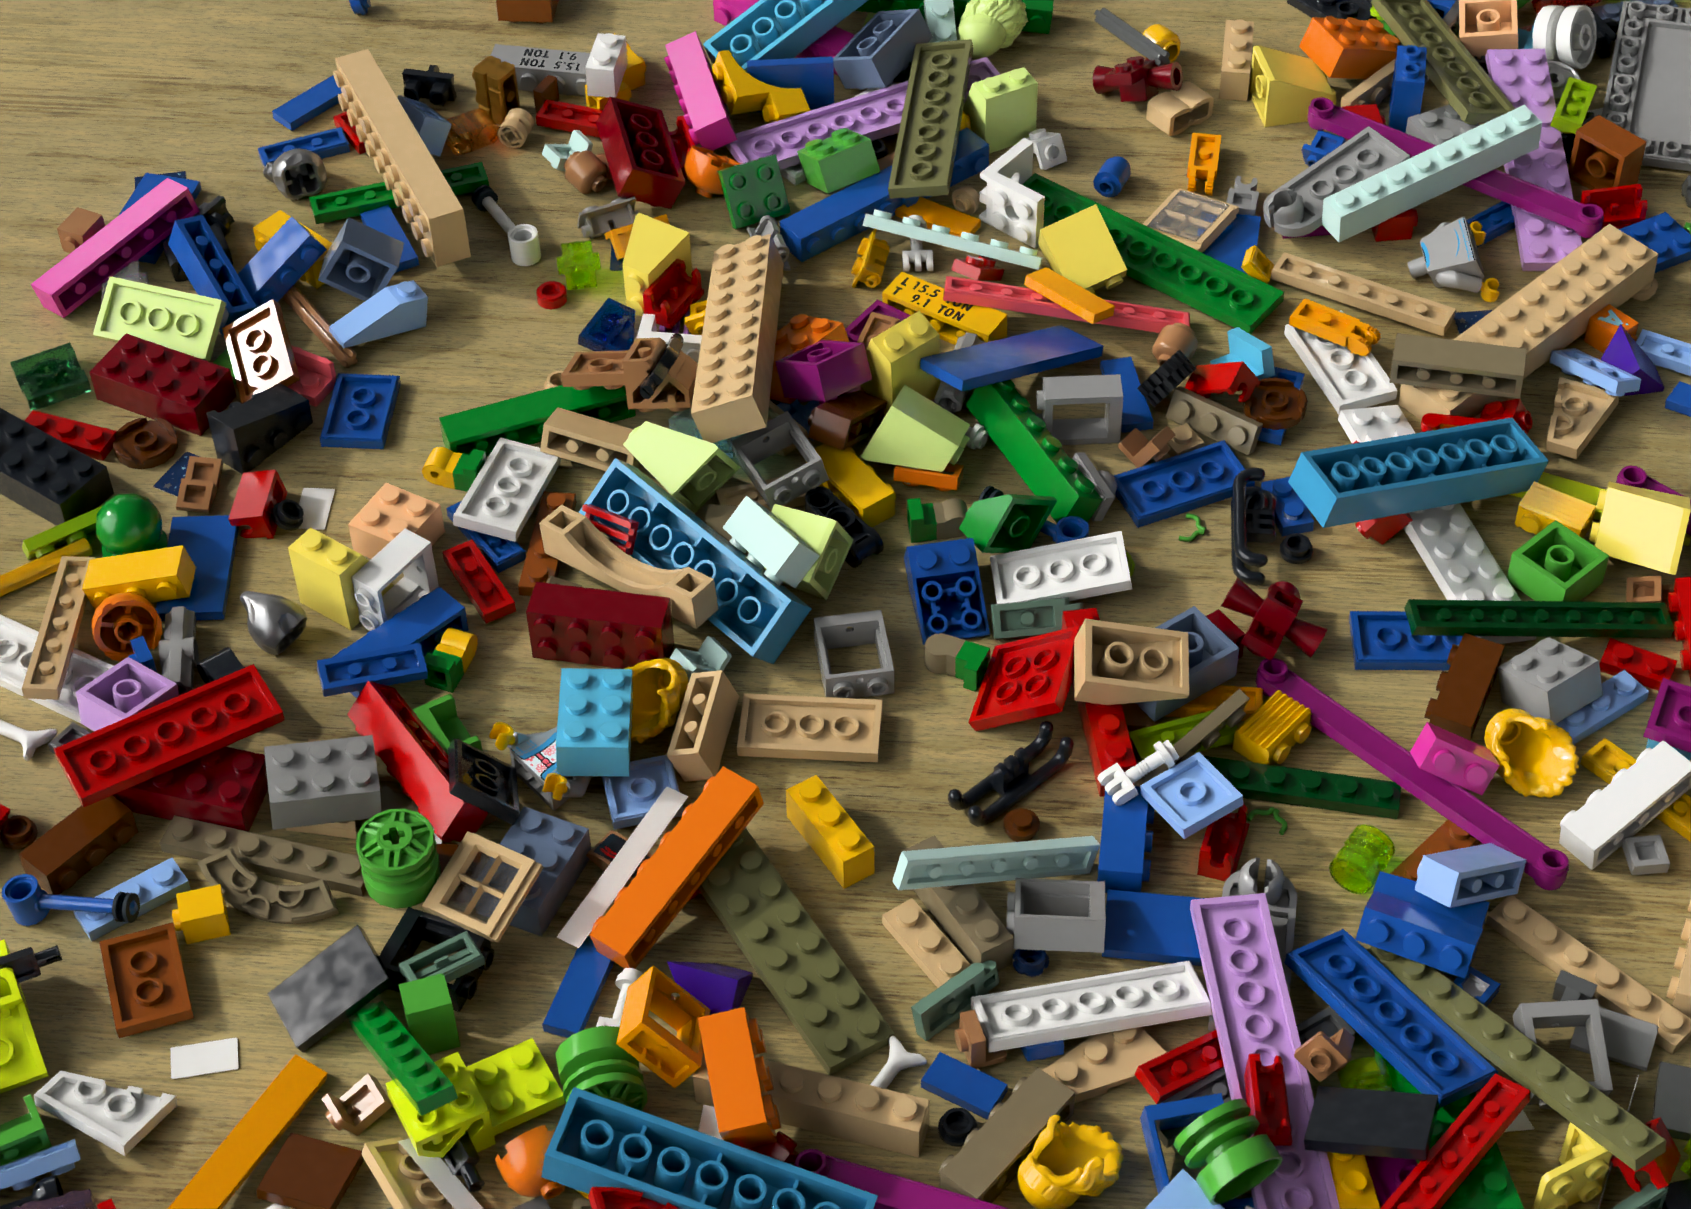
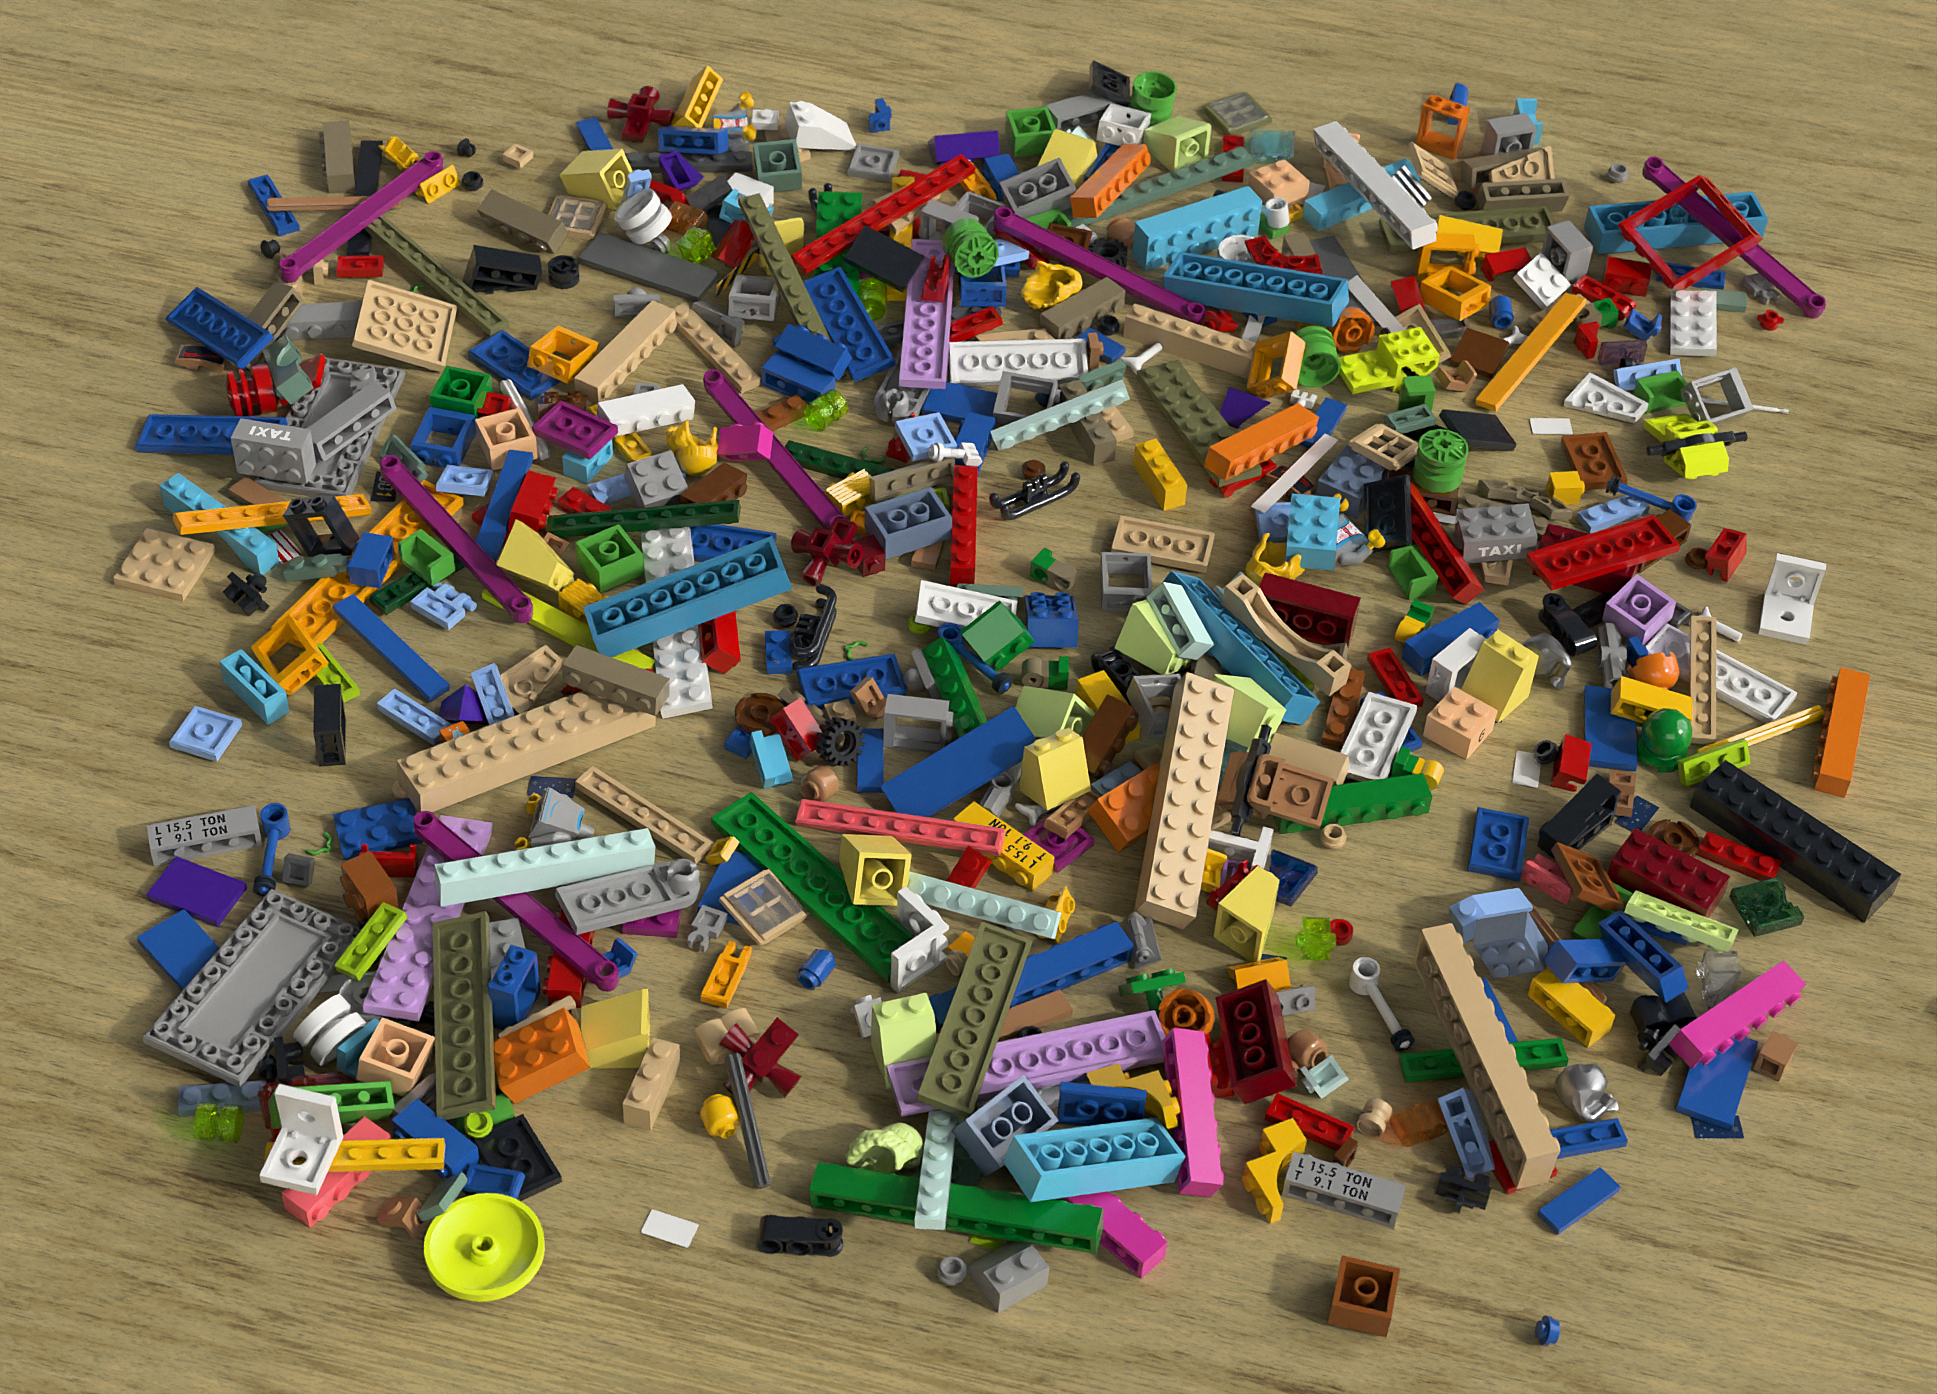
camera: 175 degrees left, 0 degrees up
(380, 666) = (1468, 595): blue plate -> none
(402, 1057) = (1428, 355): green plate -> none
(496, 87) = (1395, 1147): pearl gold brick -> none
(606, 65) = (1284, 1133): white brick -> none
(632, 525) = (1298, 672): red tile -> none
(703, 725) = (1237, 543): tan brick -> none
(739, 1078) = (1236, 311): orange brick -> none
(824, 371) = (1119, 753): magenta brick -> none
(838, 160) = (1069, 998): bright green brick -> none
(1026, 680) = (1010, 532): red plate -> none
(1069, 295) = (898, 819): light orange tile -> none
(1129, 663) = (948, 492): tan slope -> none
(1325, 1054) = (892, 302): medium nougat bracket -> none
(1335, 327) = (688, 766): light orange hinge -> none
(1344, 377) = (689, 756): white plate -> none
(1469, 875) = (768, 374): light blue brick -> none

